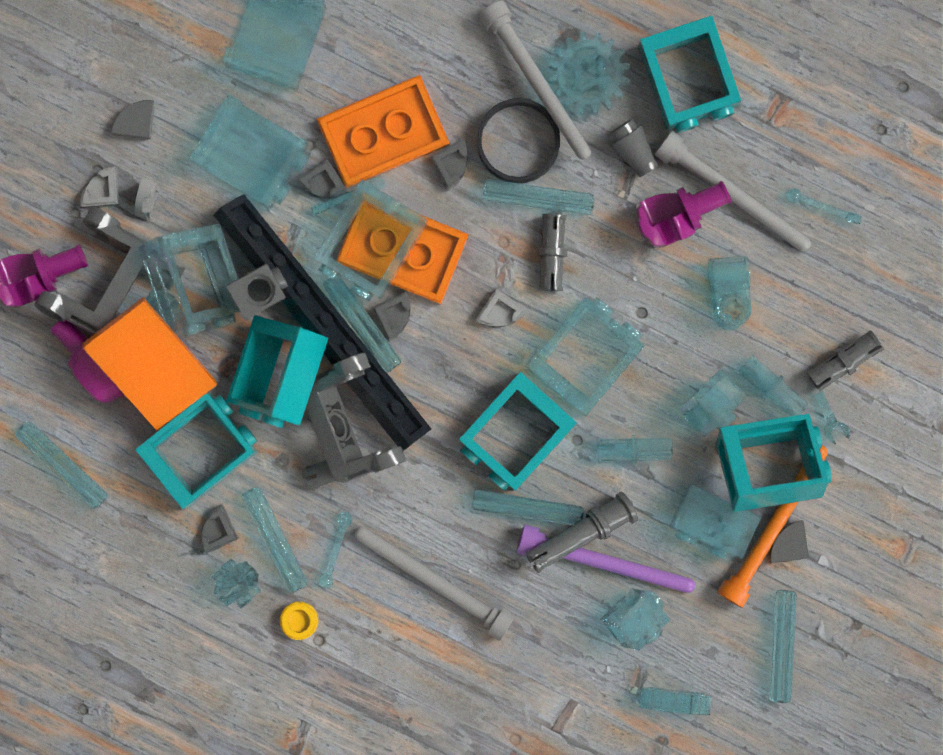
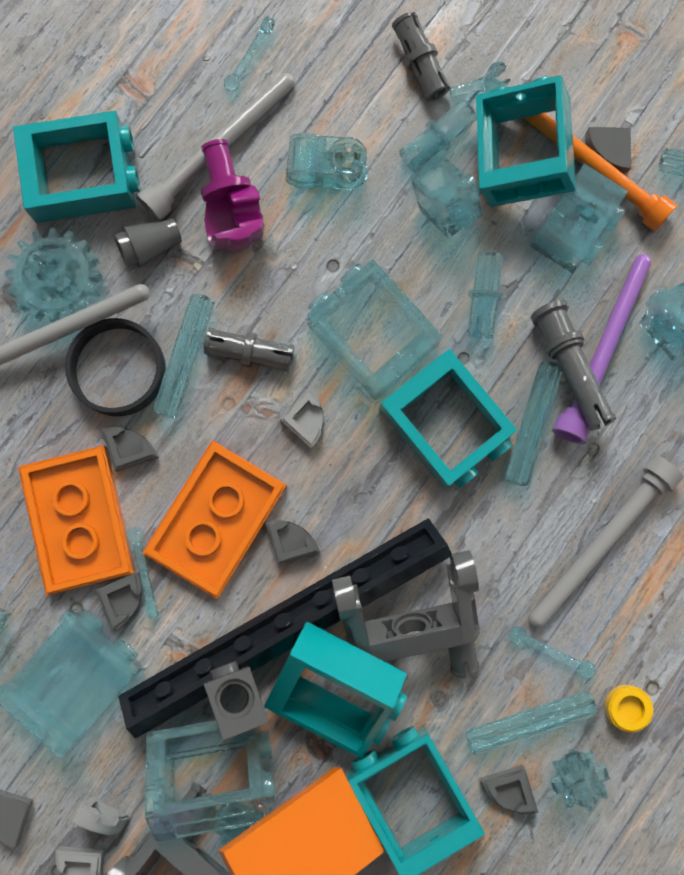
camera: 90 degrees left, 5 degrees down
(362, 324) = (293, 579): clear light blue axle -> none
(387, 206) = (160, 528): clear light blue window -> none

